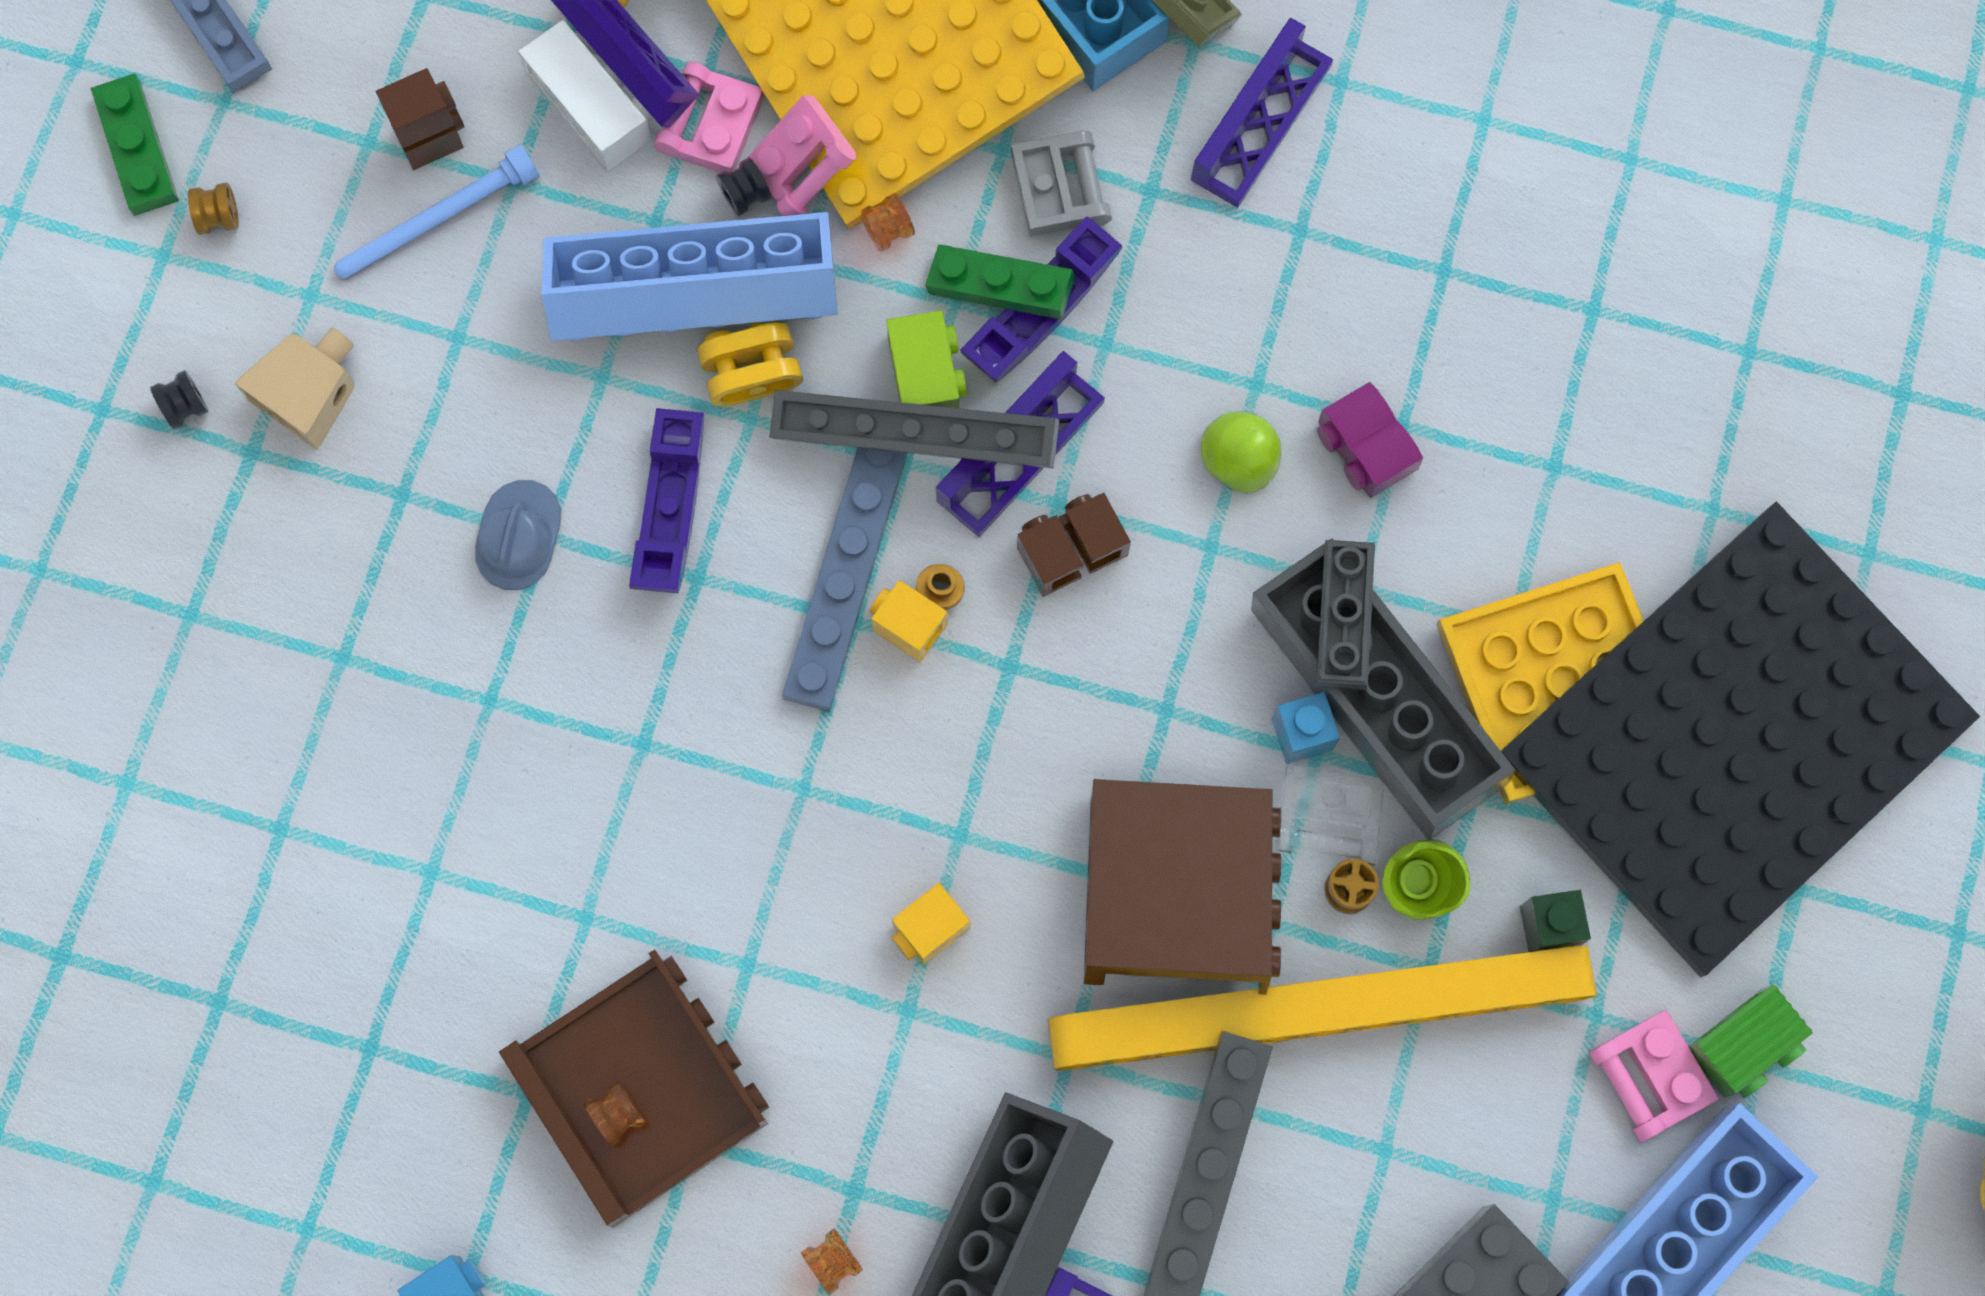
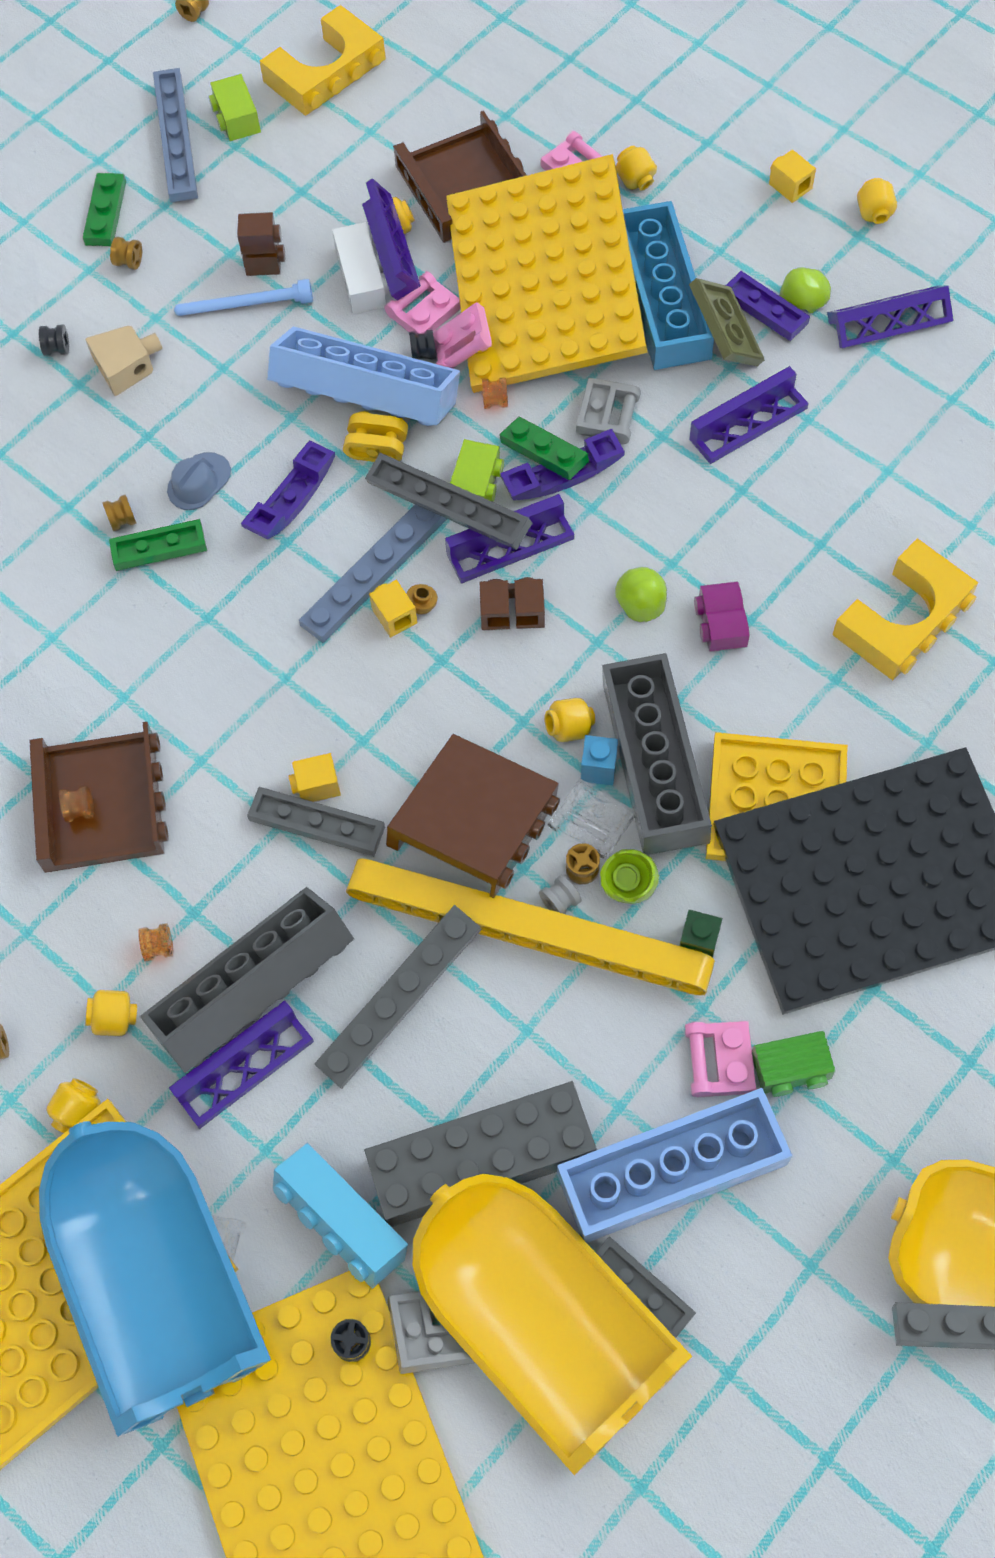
camera: 30 degrees right, 10 degrees down
(432, 639) = (119, 513): none -> pearl gold wheel
(515, 665) = (157, 544): none -> green plate
(961, 985) = (316, 821): none -> dark grey plate
(1235, 685) = (569, 719): none -> yellow head
(1345, 640) = (644, 709): dark grey tile -> none
(1345, 947) = (560, 895): none -> light grey wheel
(1647, 280) = (894, 646): none -> yellow arch

